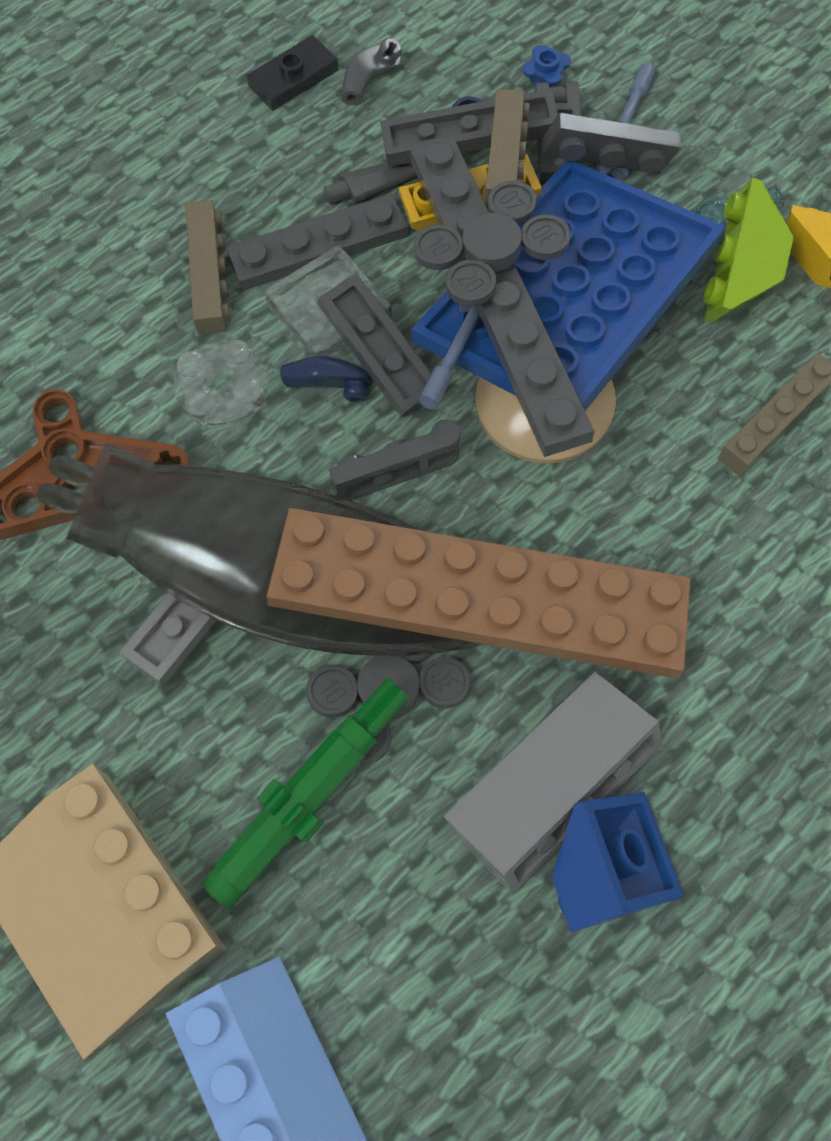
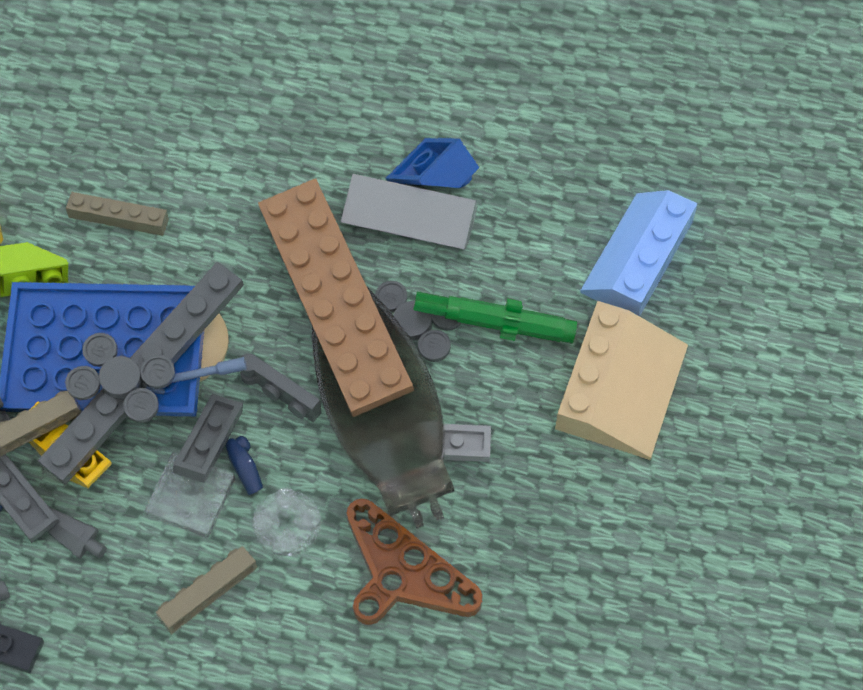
camera: 125 degrees left, 5 degrees down
(291, 248) = (143, 536): dark grey plate -> none

